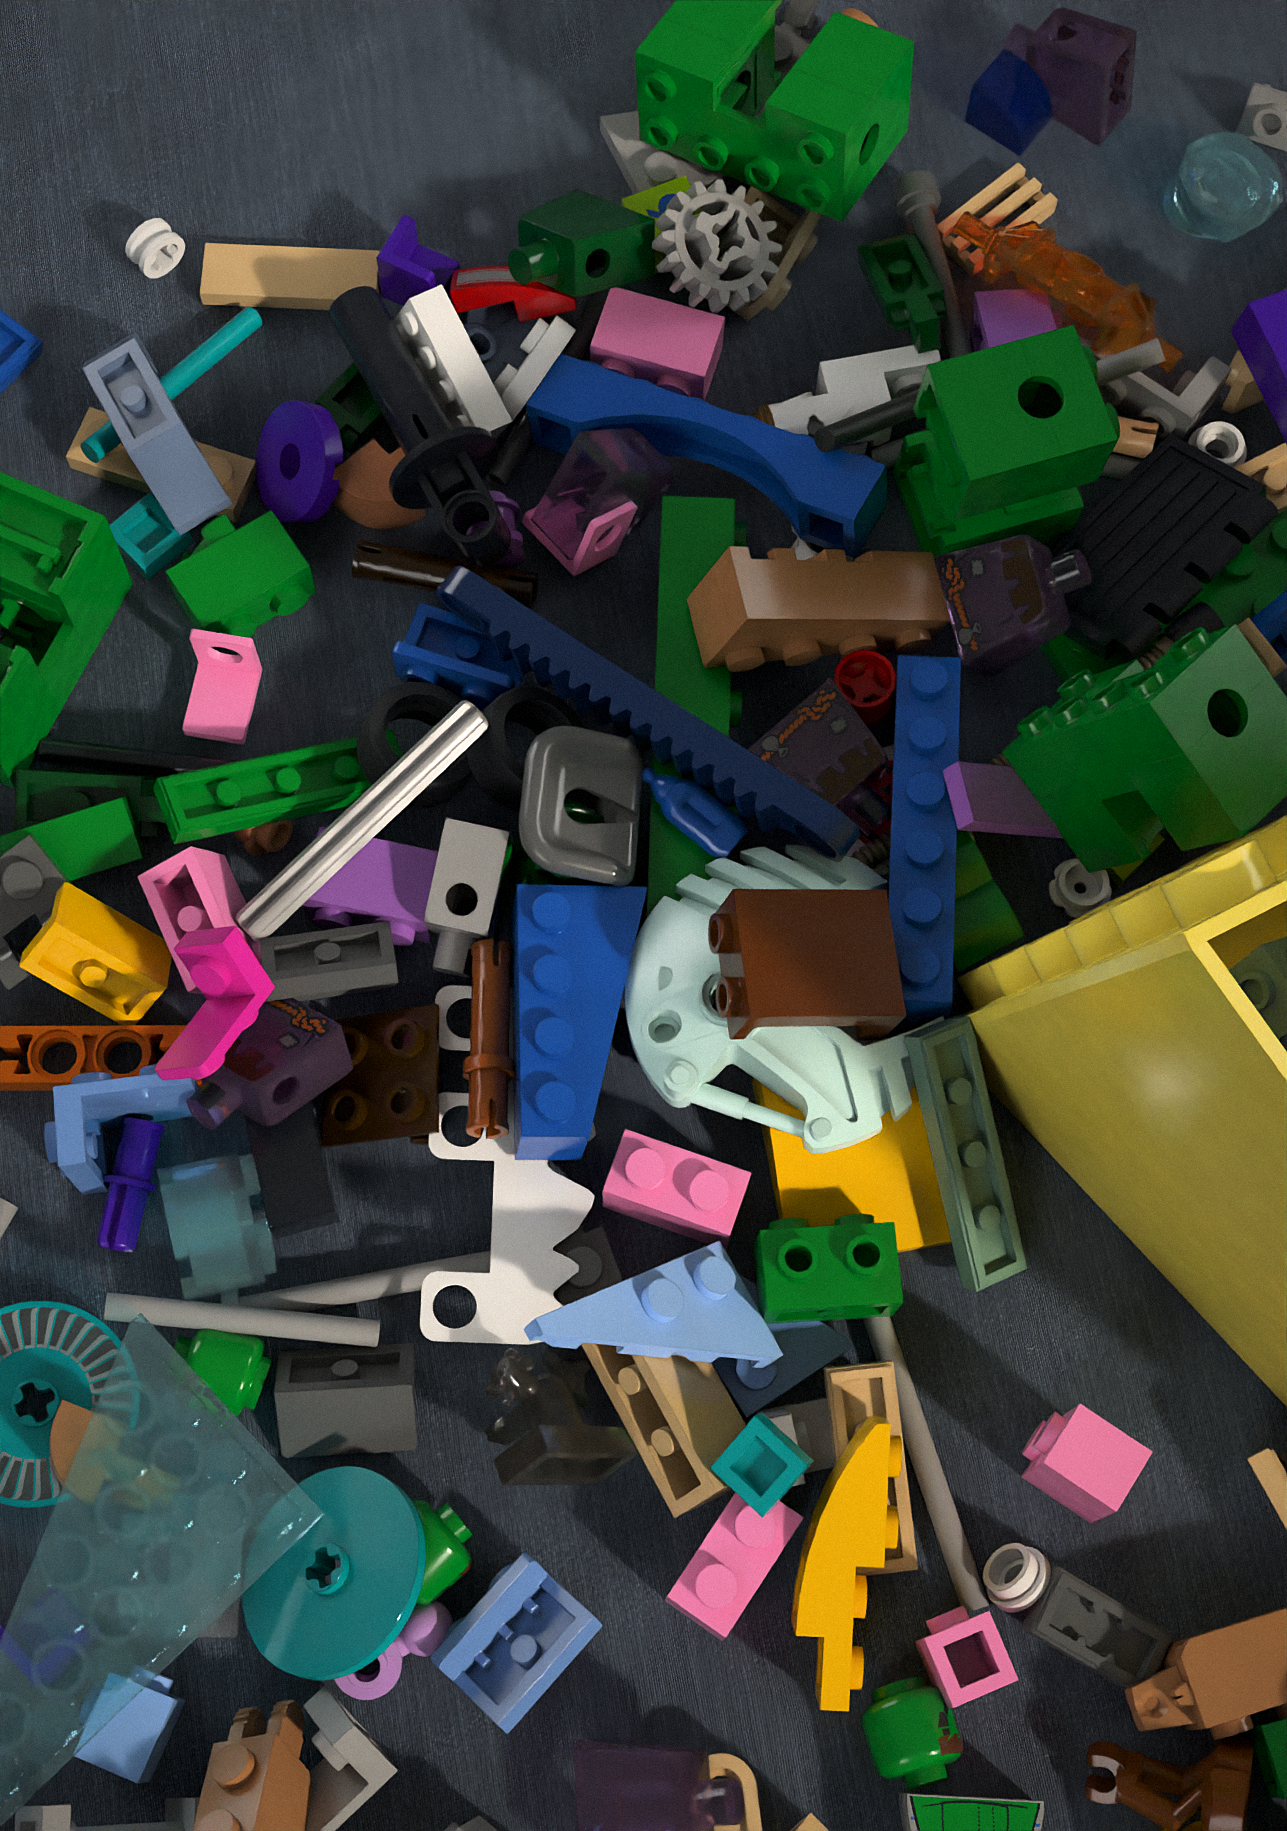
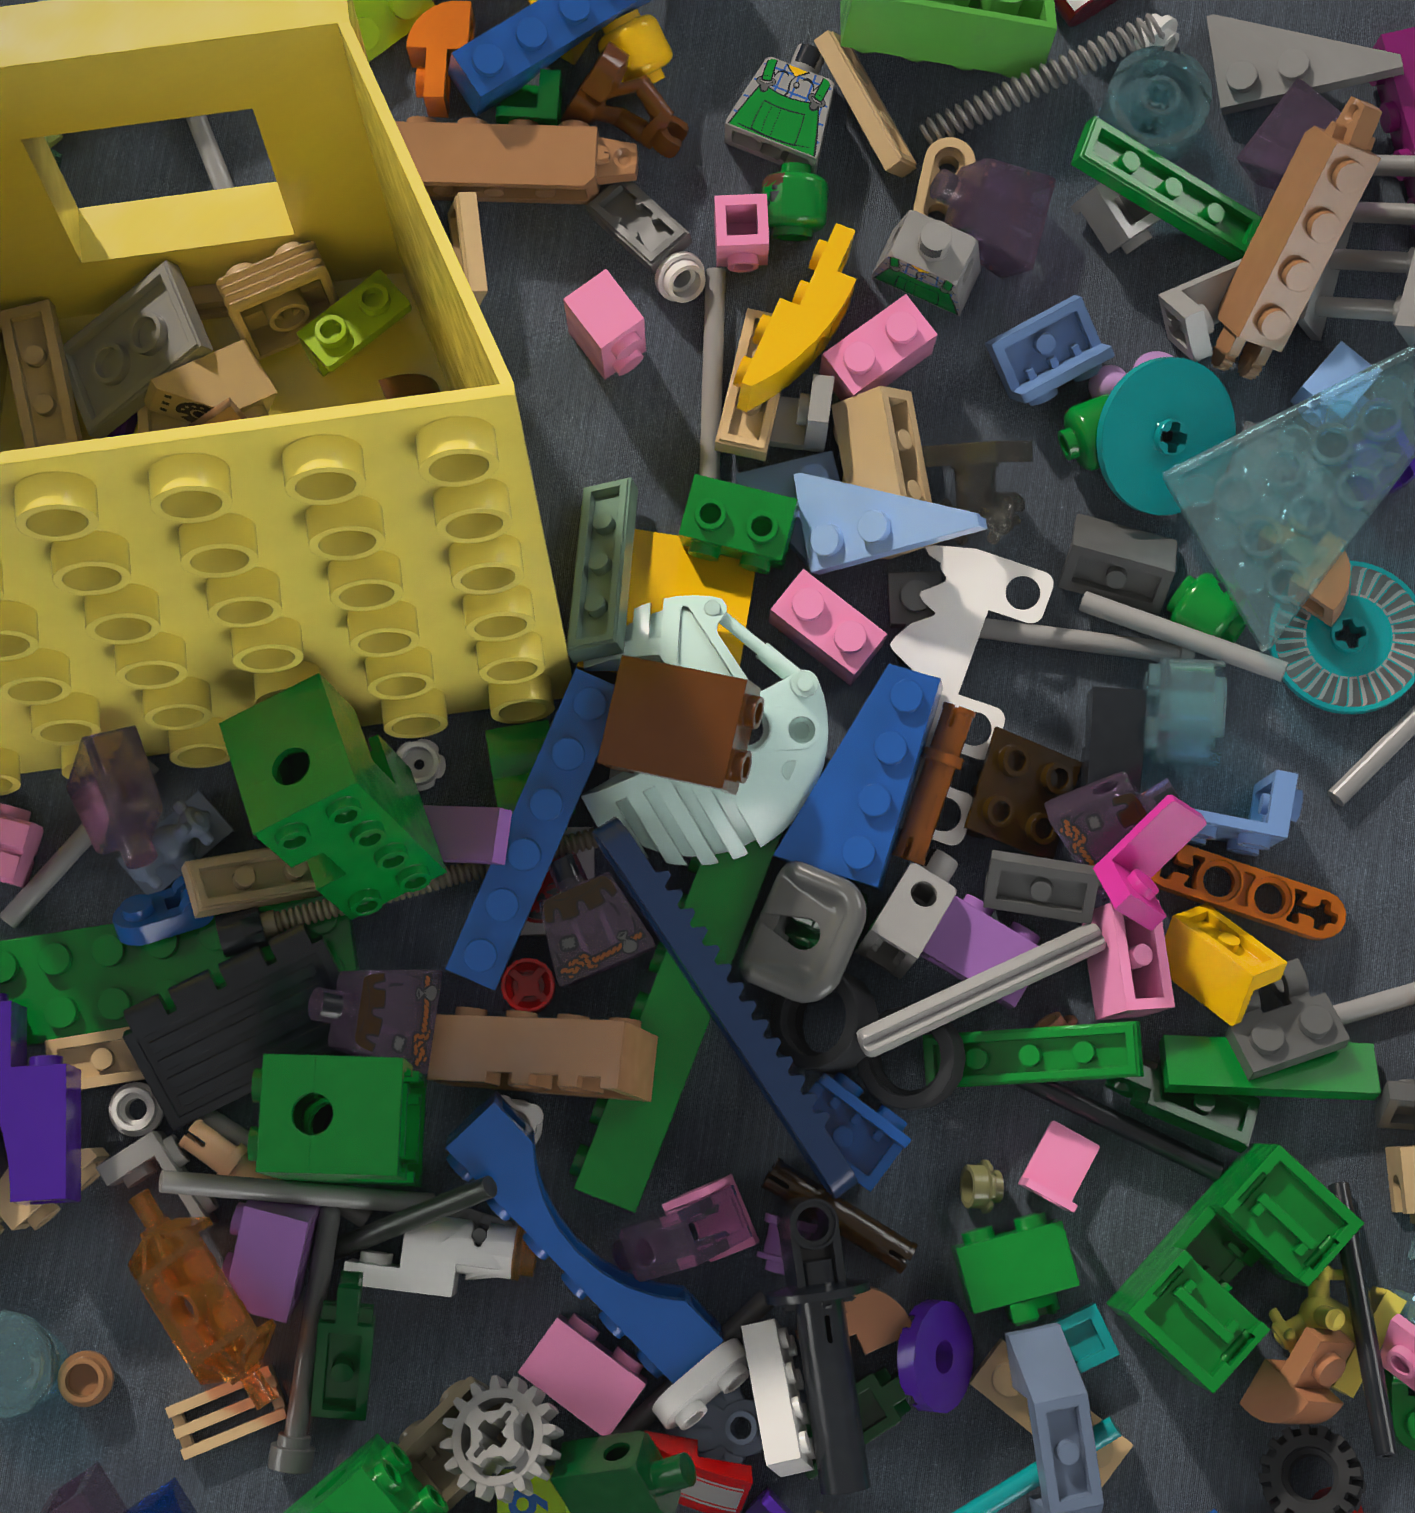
camera: 160 degrees left, 10 degrees up
(129, 1184) = (1241, 772): dark purple axle -> none
(301, 650) = (981, 1186): none -> olive plate
(697, 813) = (711, 907): blue piece -> none
(708, 1706) = (930, 262): none -> light grey torso
(761, 1464) = (843, 388): teal plate -> none
(1146, 202) = (85, 1378): none -> medium nougat plate

